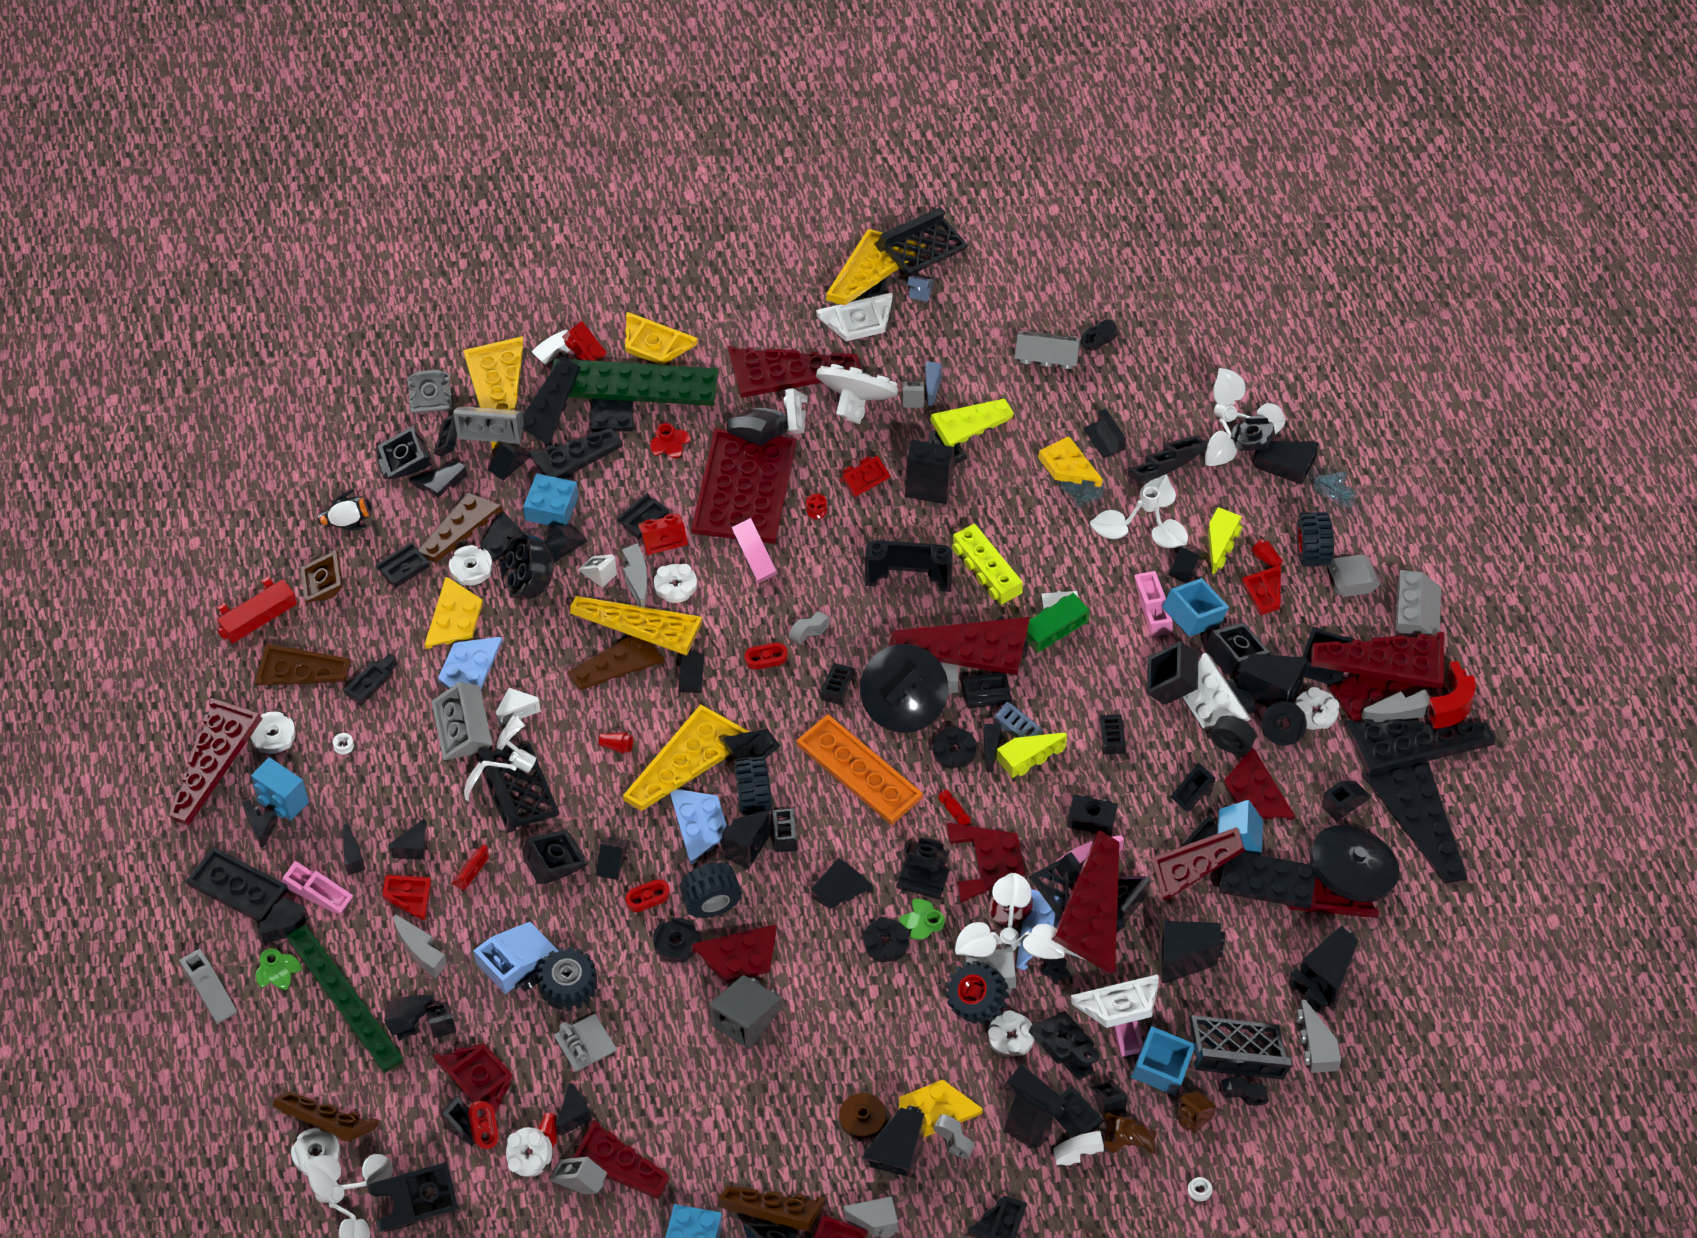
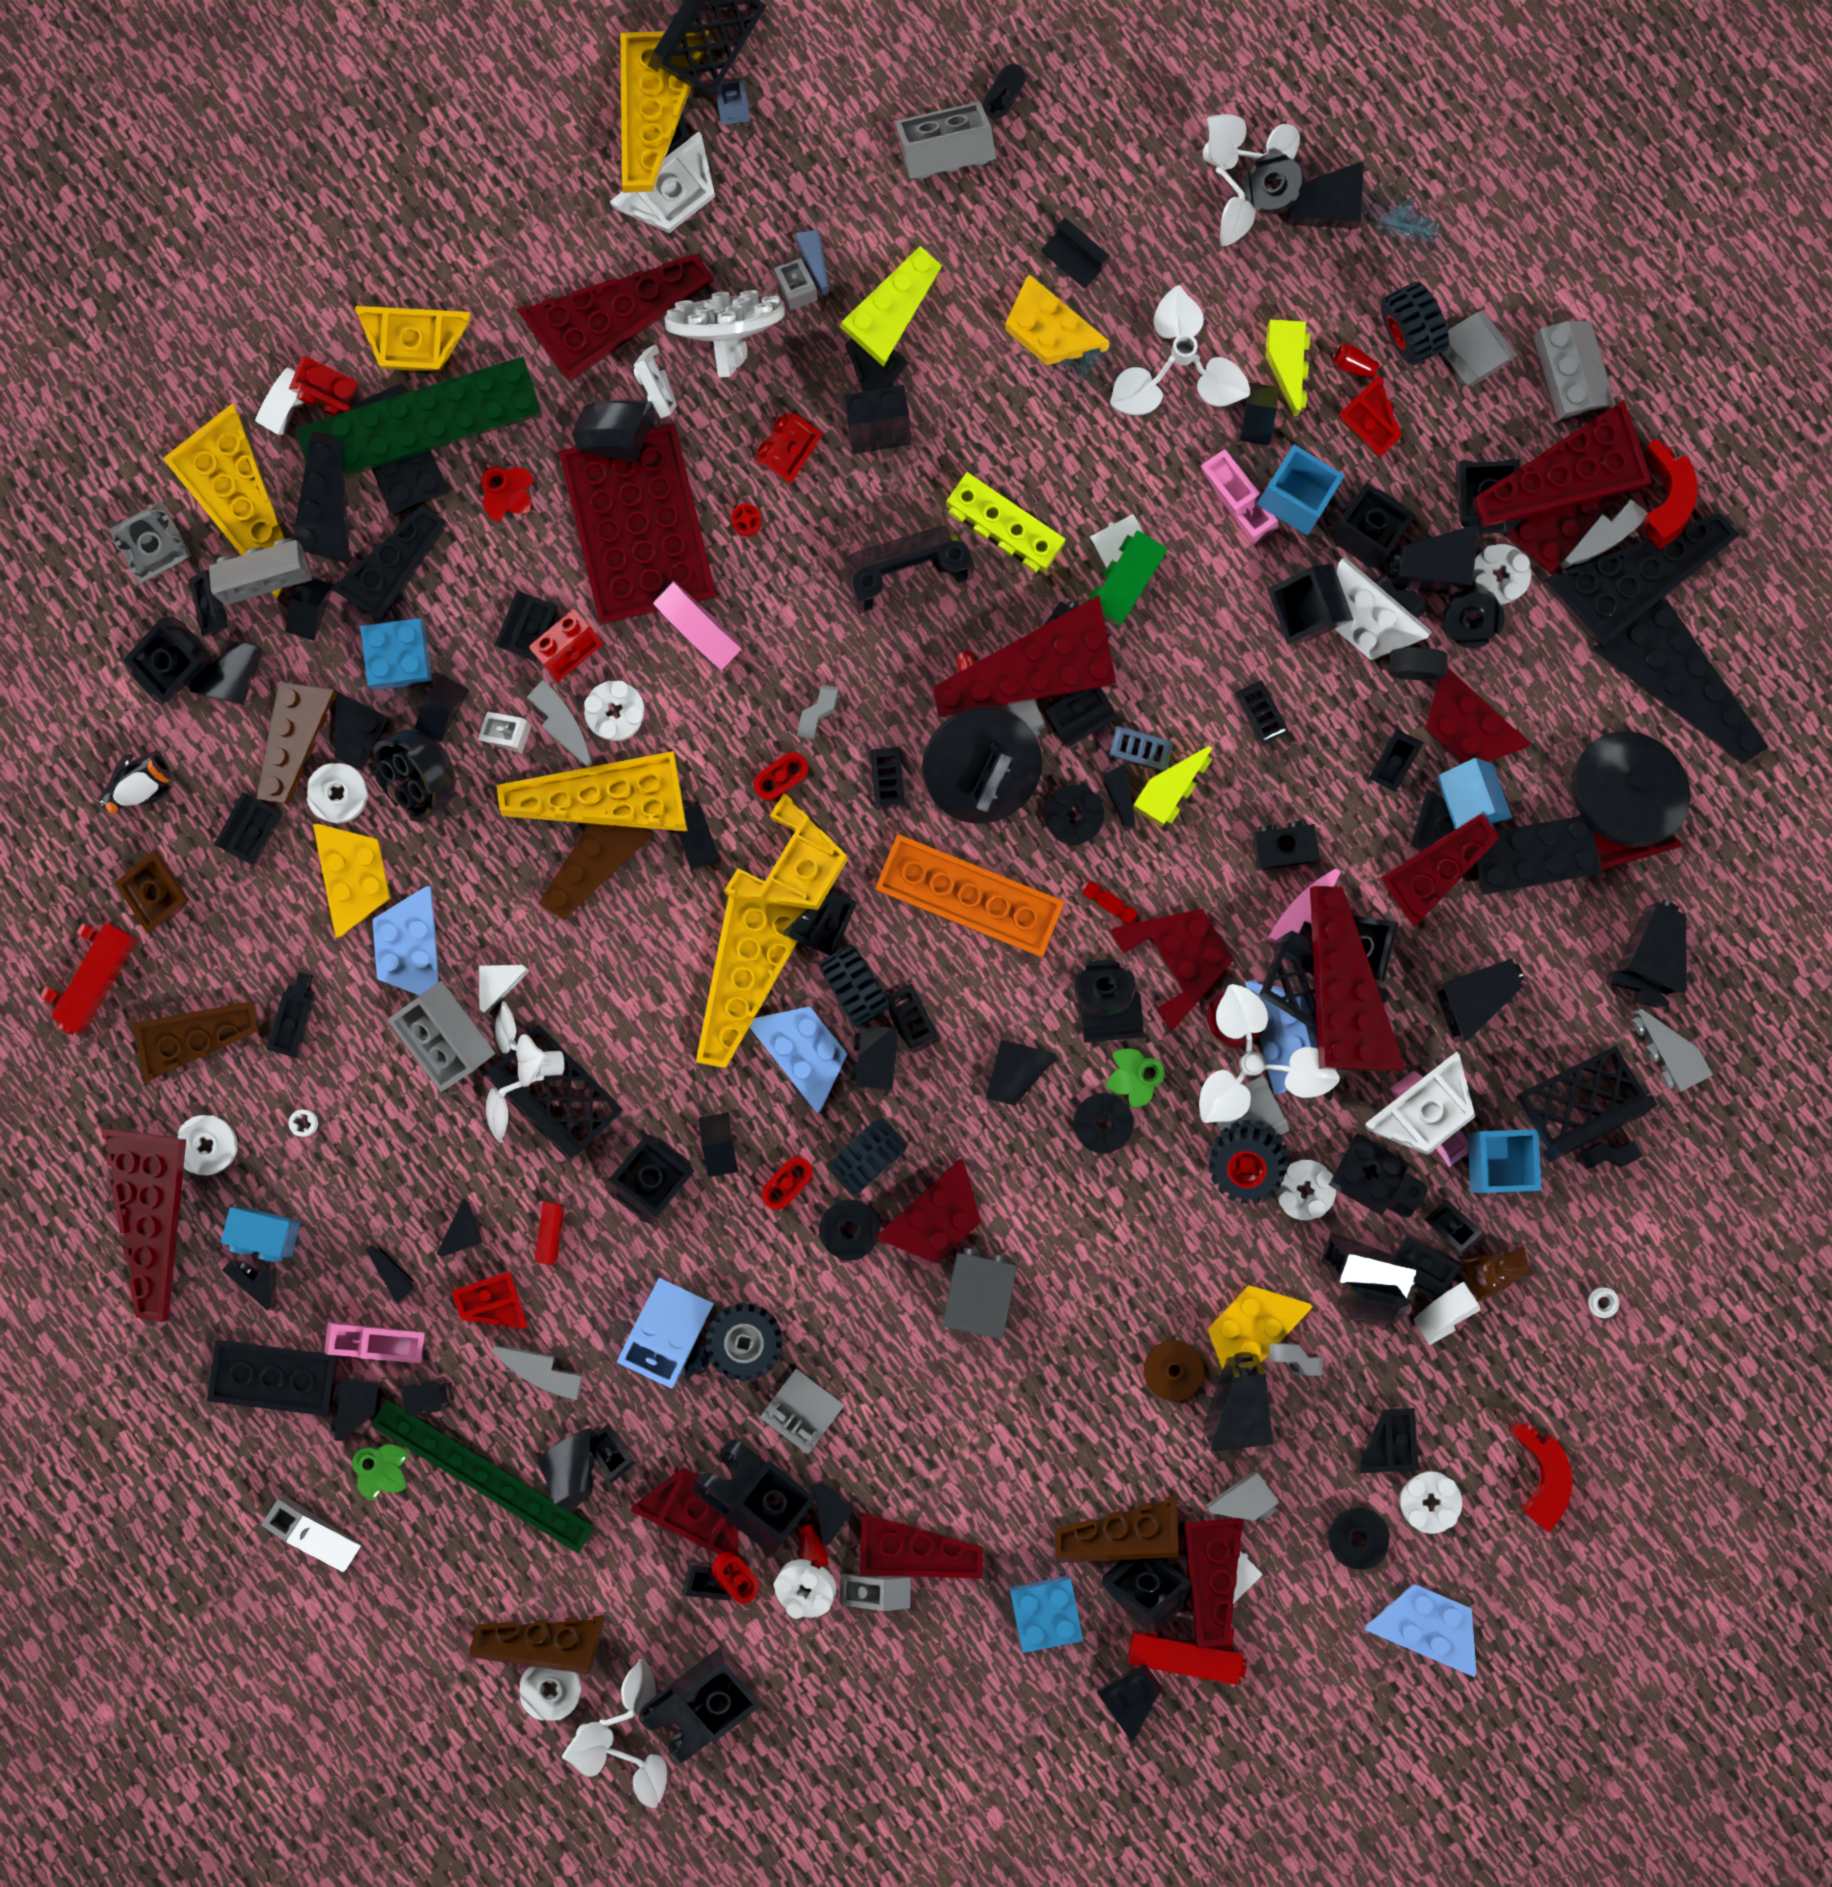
camera: 25 degrees left, 30 degrees up
(334, 927) = (427, 1396): none -> black brick
(525, 1076) = (750, 1494): none -> black brick
(618, 742) = (650, 980): red cone -> none
(749, 710) = (802, 871): none -> yellow wing
(1171, 458) = (1176, 258): black slope -> none
(1195, 1111) = (1566, 1210): reddish brown slope -> none
(1343, 799) = (1586, 697): black slope -> none

